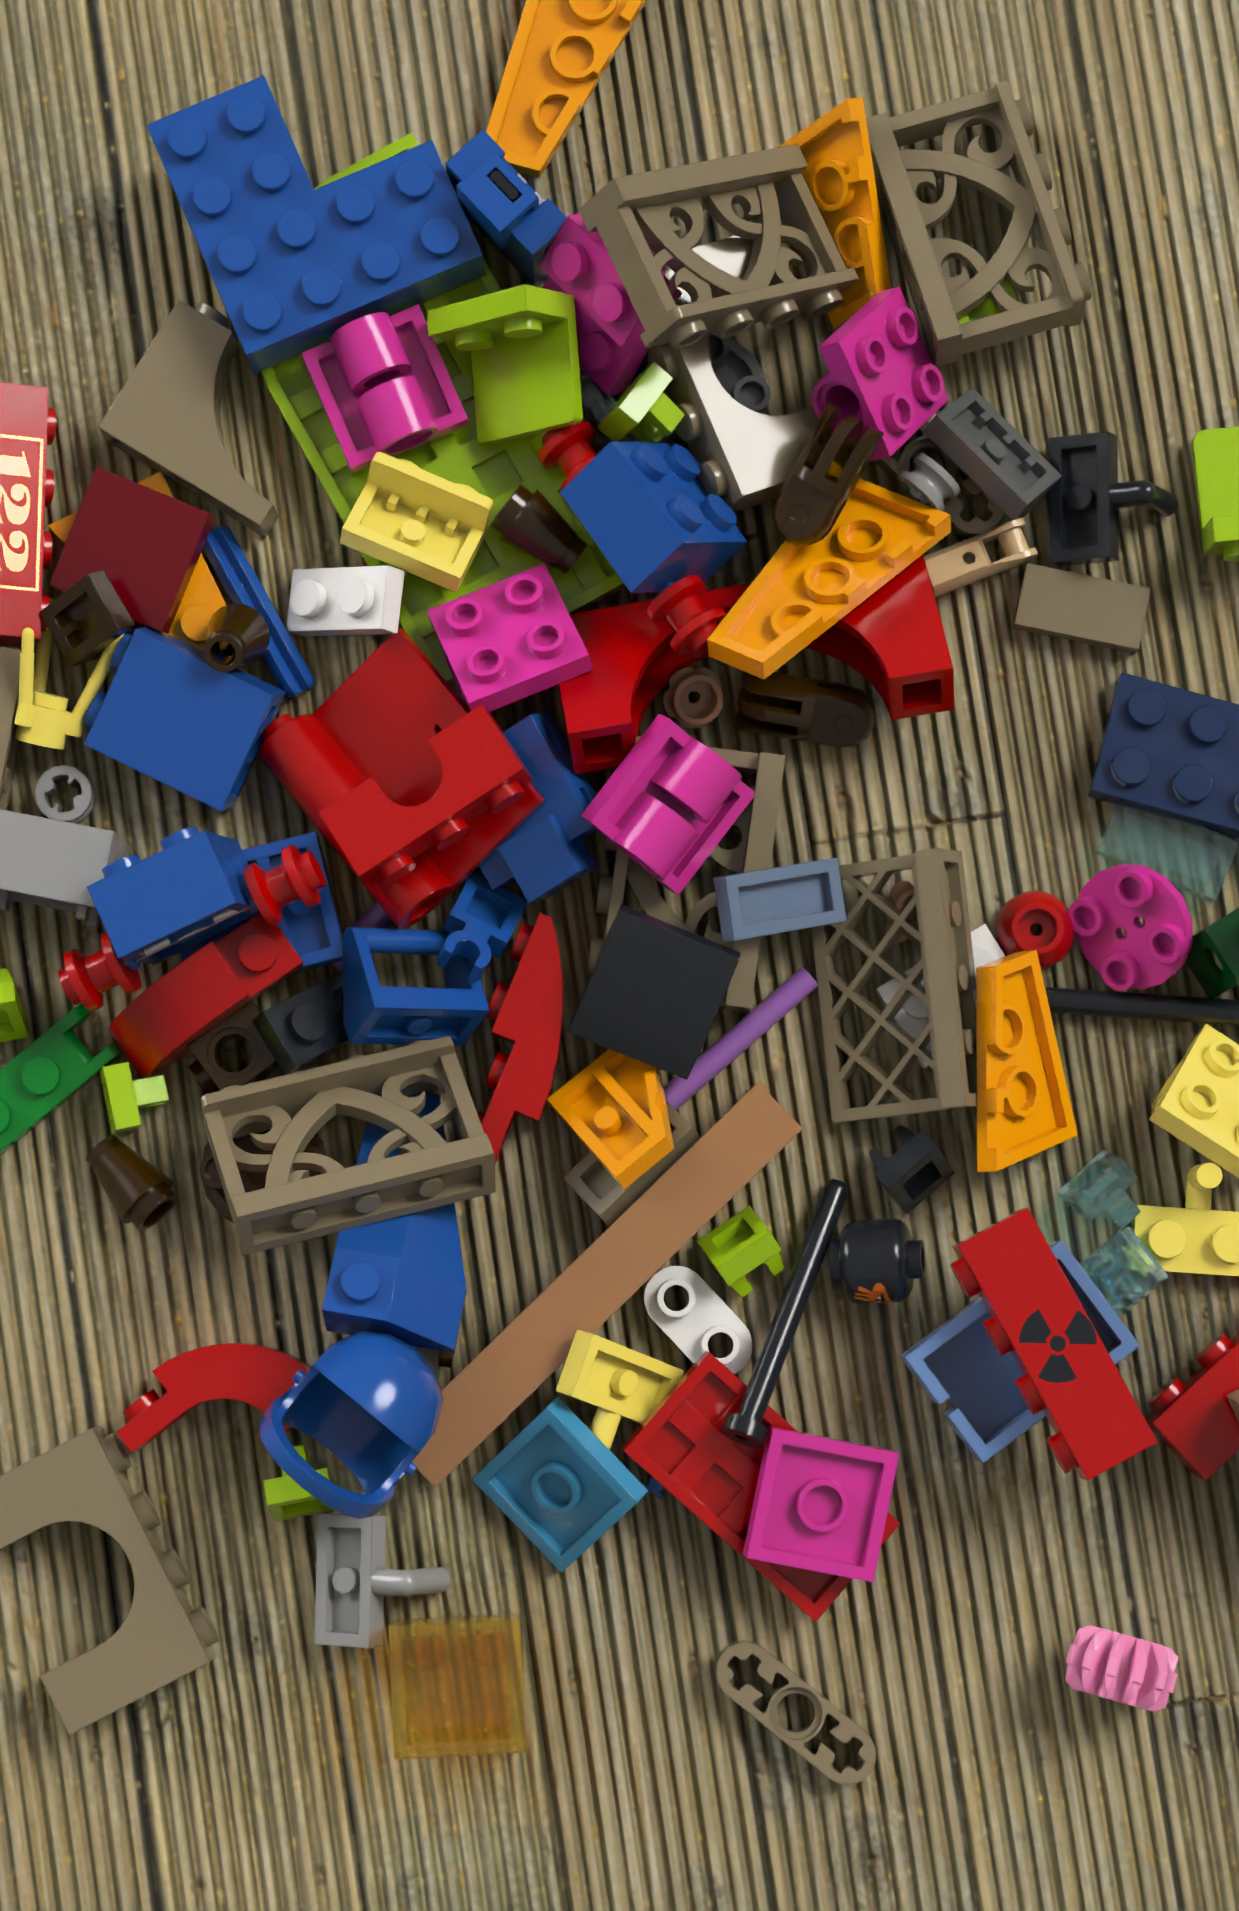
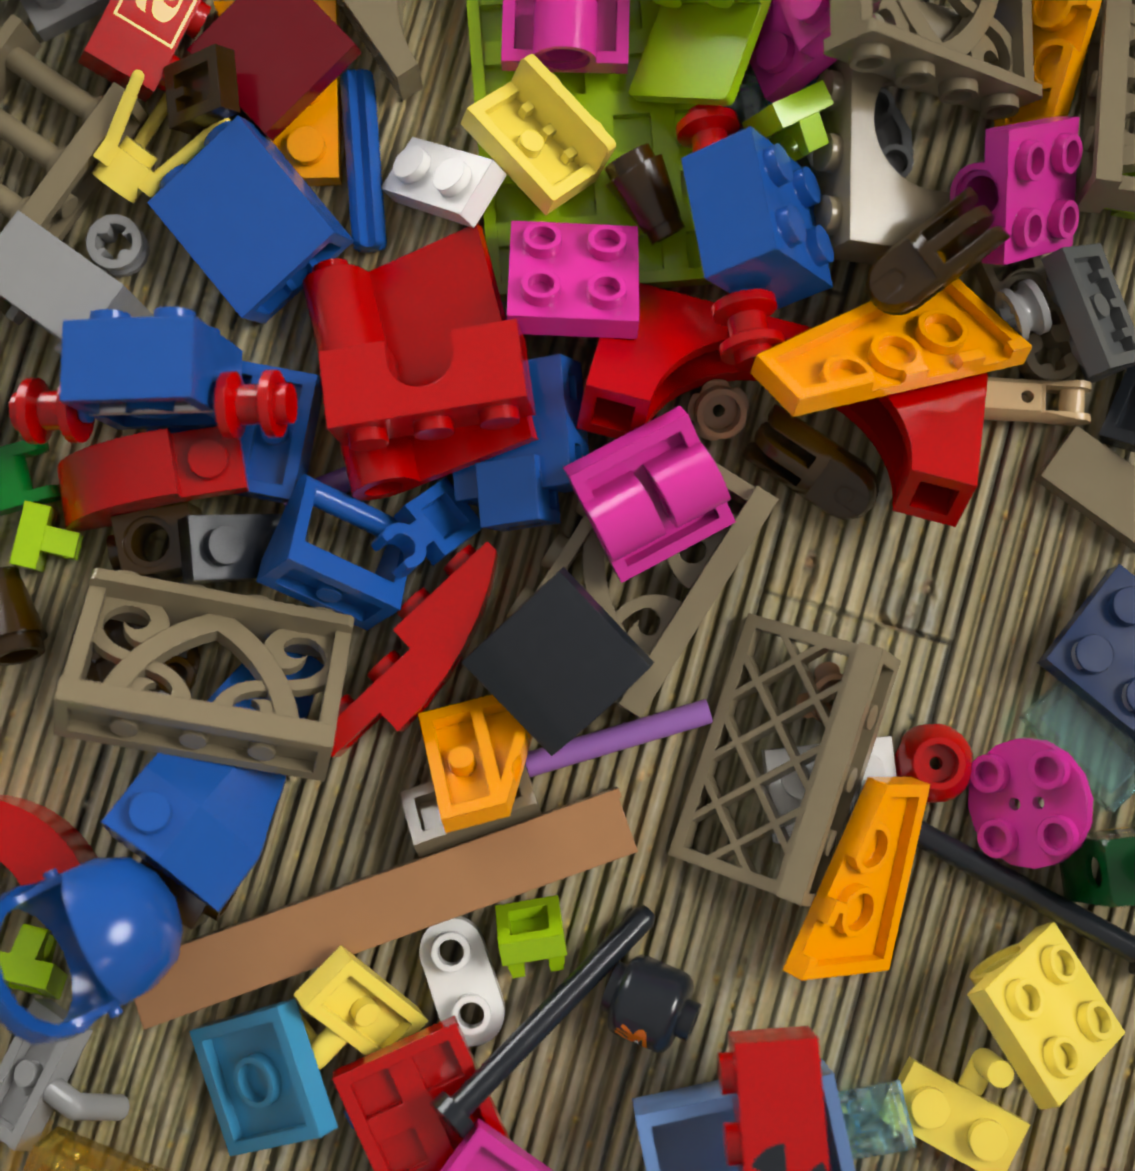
camera: 25 degrees right, 0 degrees up
(235, 637) = (326, 168): dark brown cone -> none
(779, 899) = (712, 629): sand blue tile -> none
(913, 1170) = (722, 934): black tile -> none
(1101, 1189) = (889, 1033): clear light blue tile -> none

